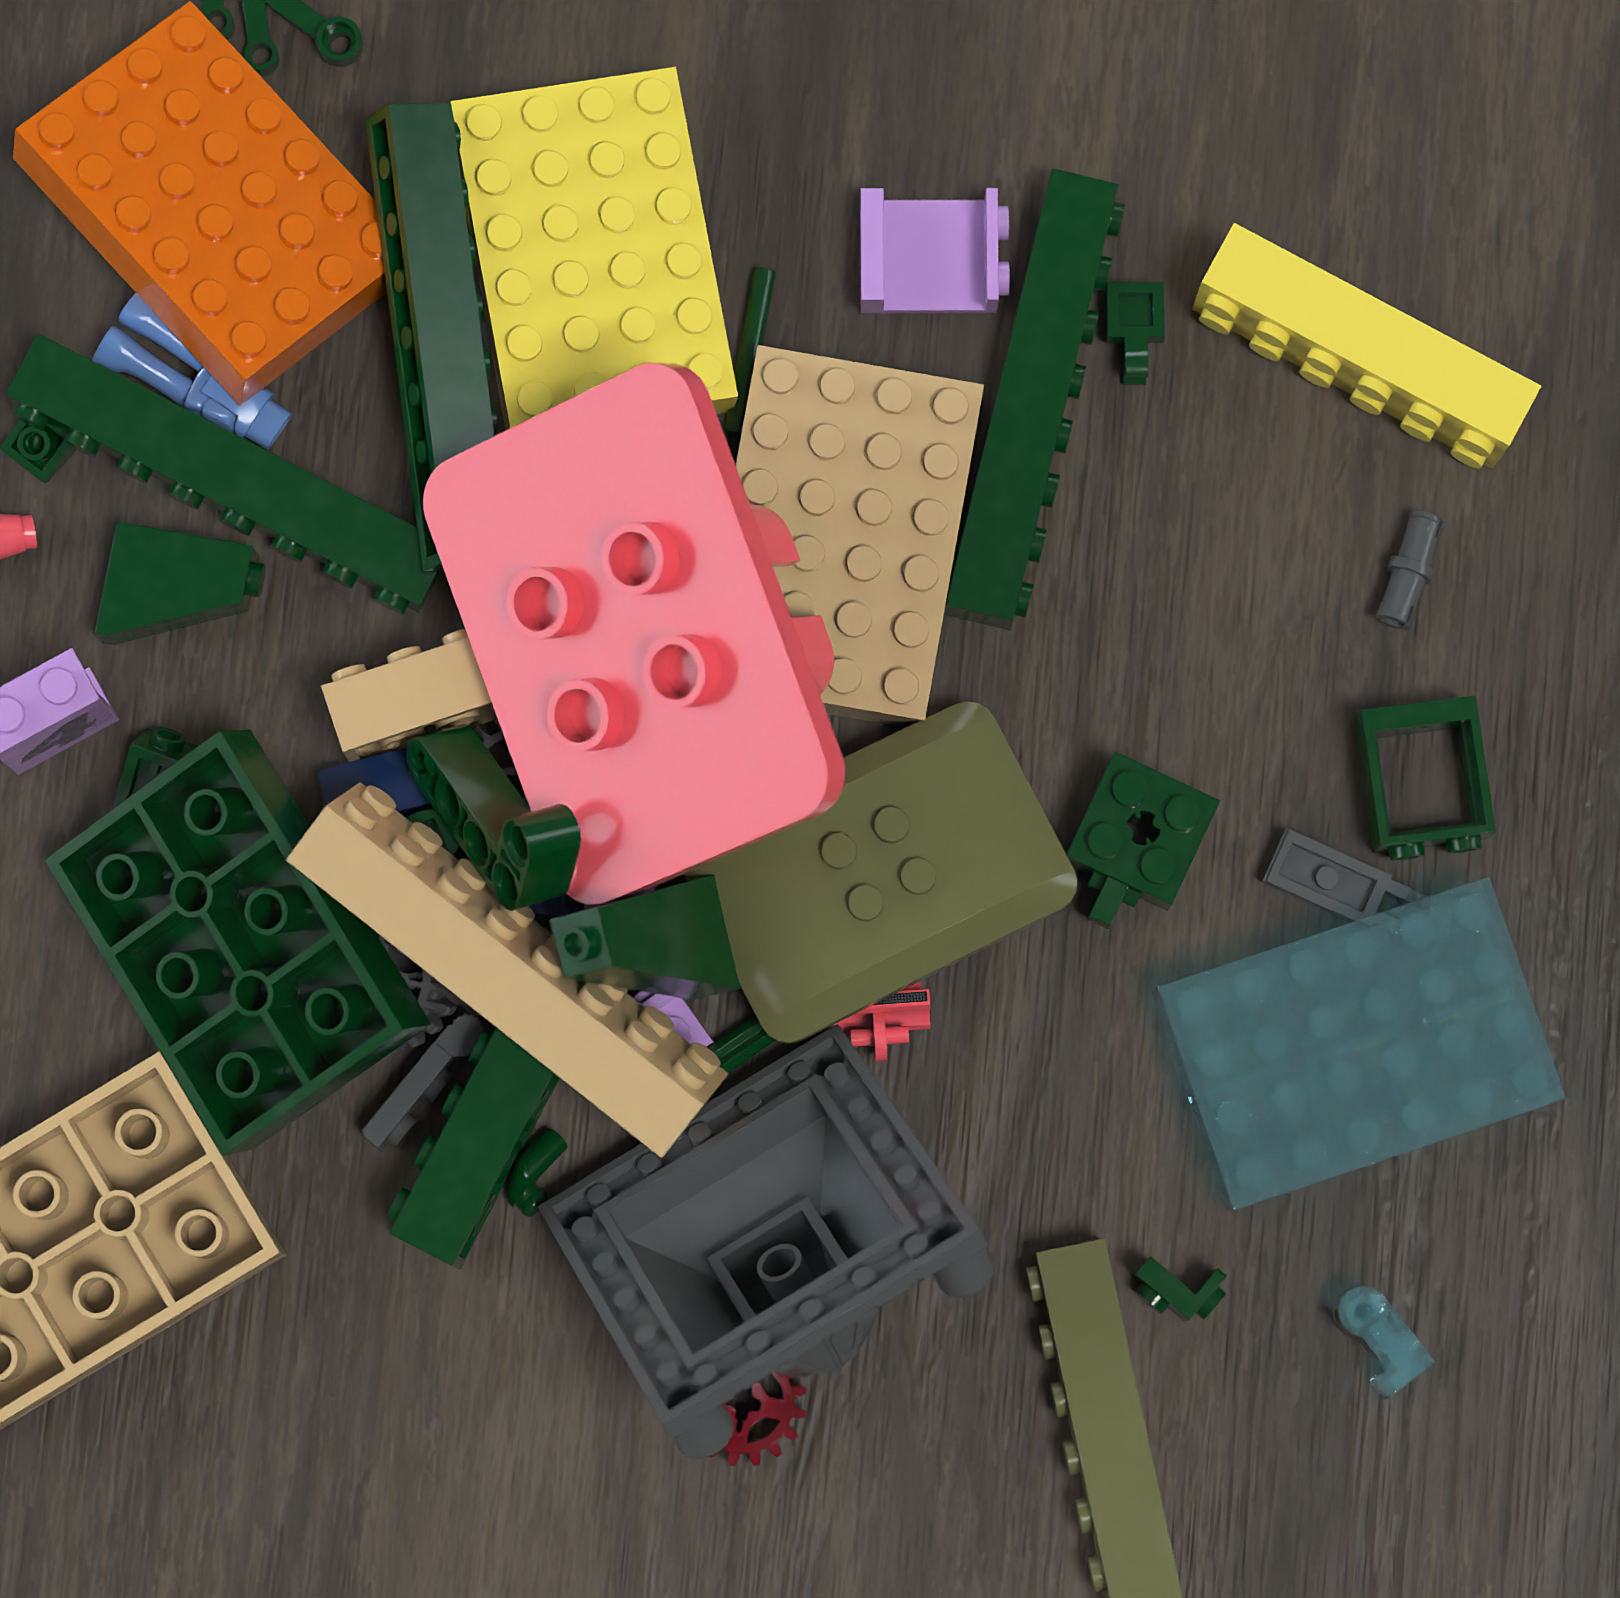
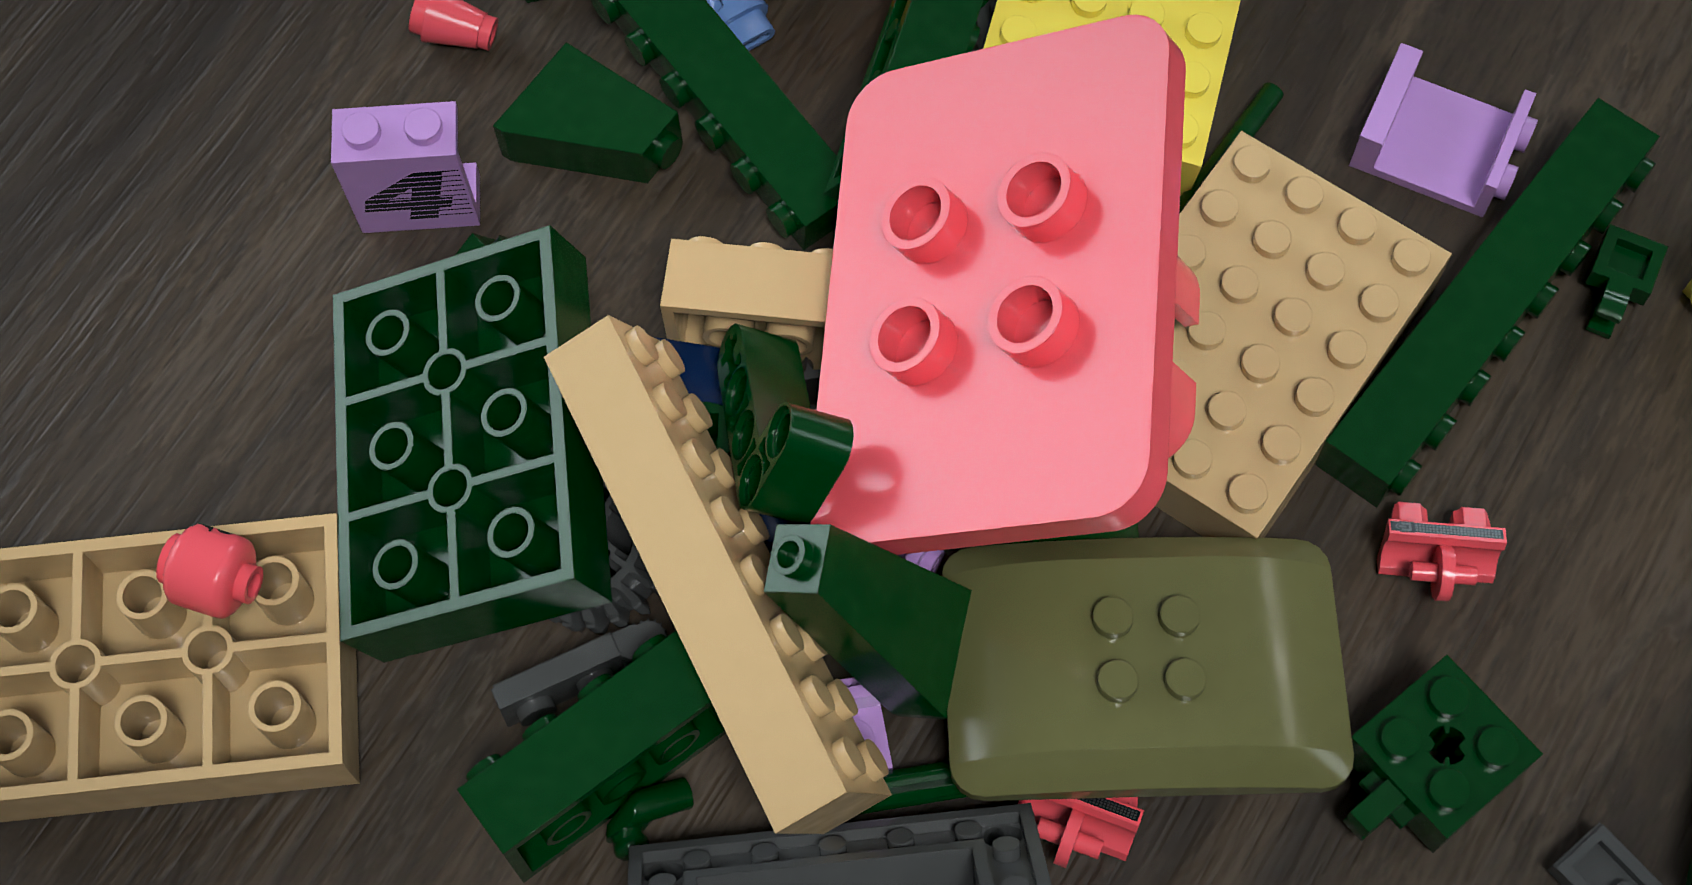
camera: 30 degrees right, 15 degrees down
(89, 1152) = (209, 571): none -> coral head
(1079, 656) = (1441, 553): none -> coral hips

